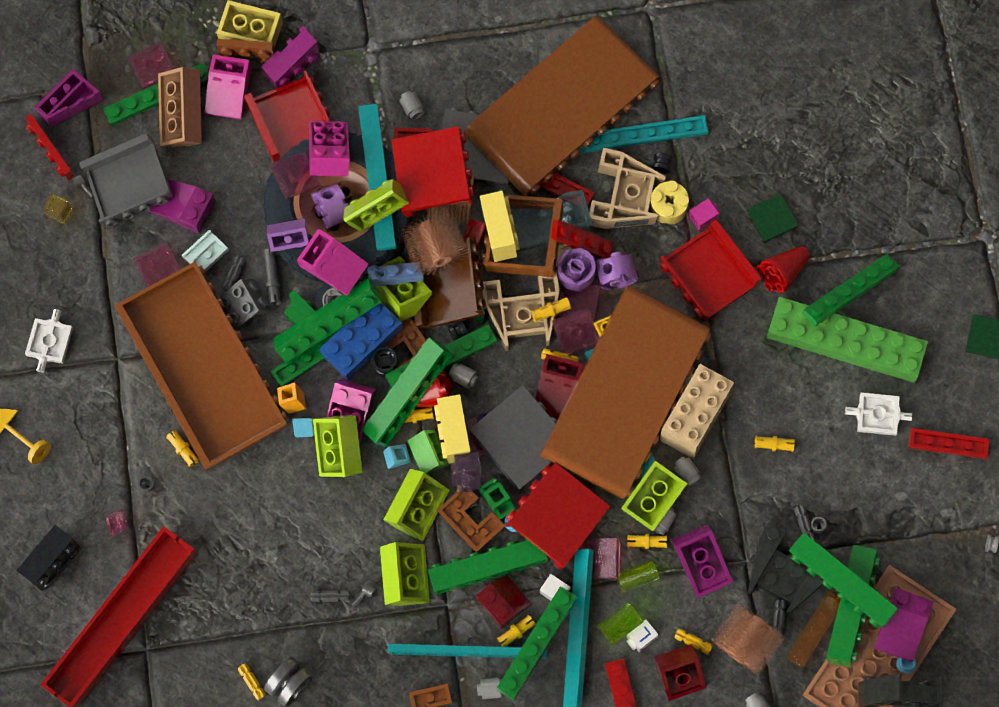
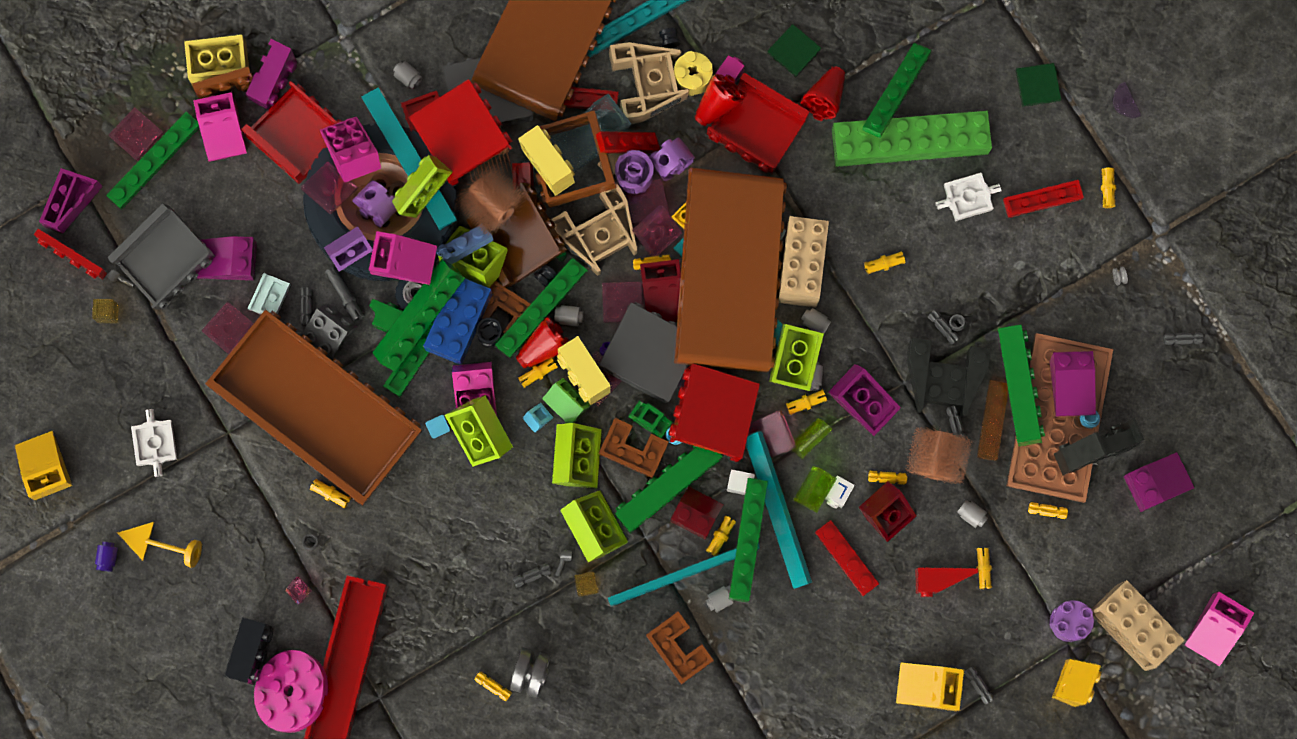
camera: 30 degrees left, 5 degrees up
(88, 610) = (304, 705): none -> dark pink plate
(179, 107) = (182, 165): medium nougat slope -> none
(291, 398) = (415, 403): light orange brick -> none
(374, 624) = (586, 584): none -> clear yellow panel
(407, 392) = (524, 353): brick -> none
(466, 472) = (613, 406): brick -> none
(513, 376) = (617, 298): none -> clear pink plate
(550, 309) = (626, 220): yellow pin -> none
(682, 233) = (718, 99): none -> red cone
(843, 580) = (1004, 365): green brick -> none

